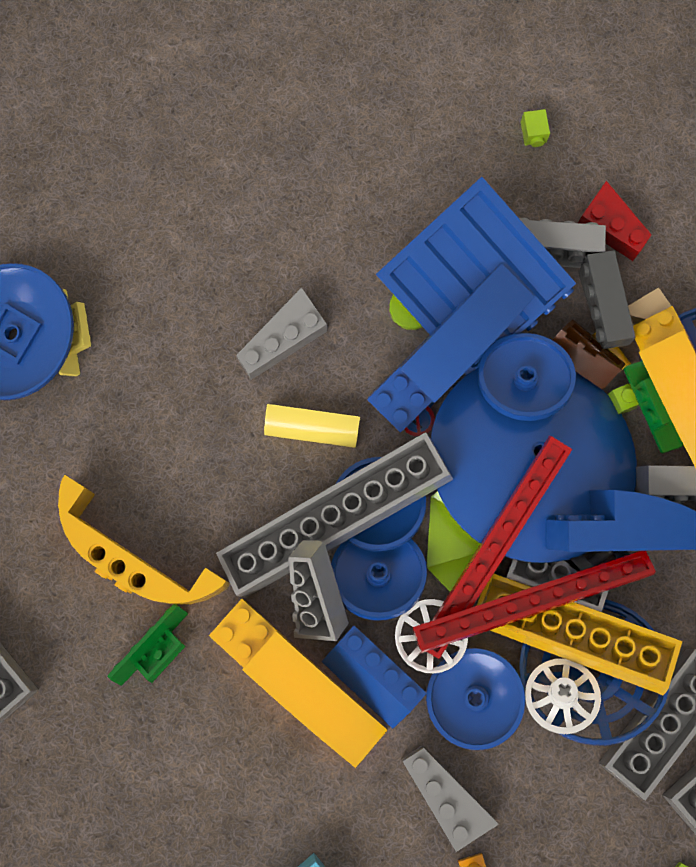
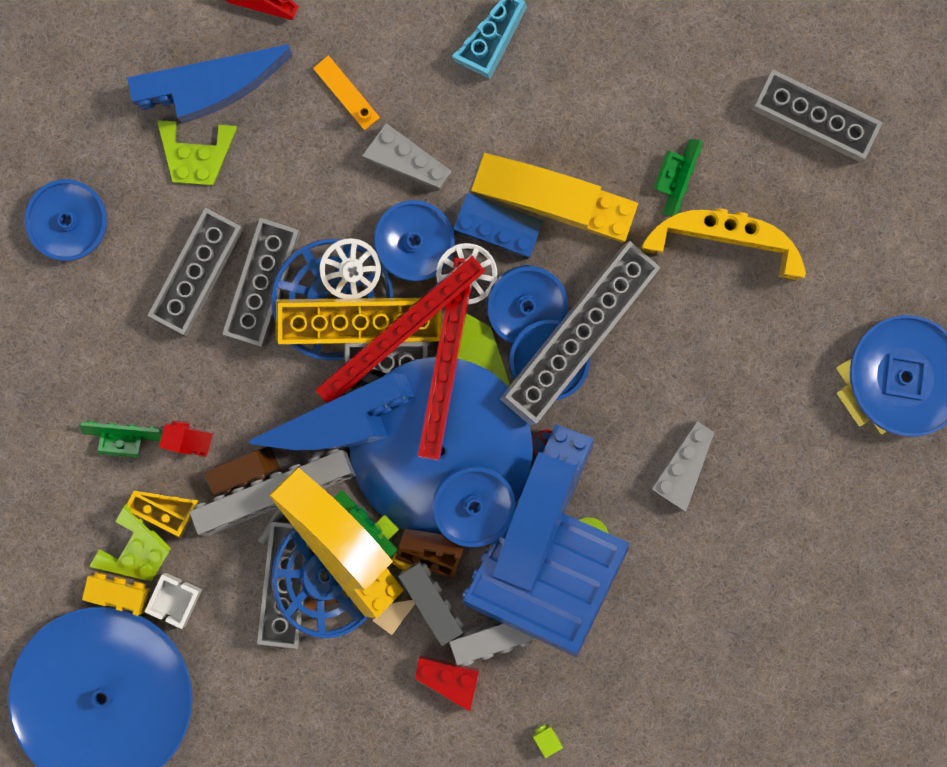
camera: 155 degrees right, 10 degrees up
(311, 425) = (628, 402): light yellow brick -> none
(315, 594) = (569, 266): light grey wedge -> none

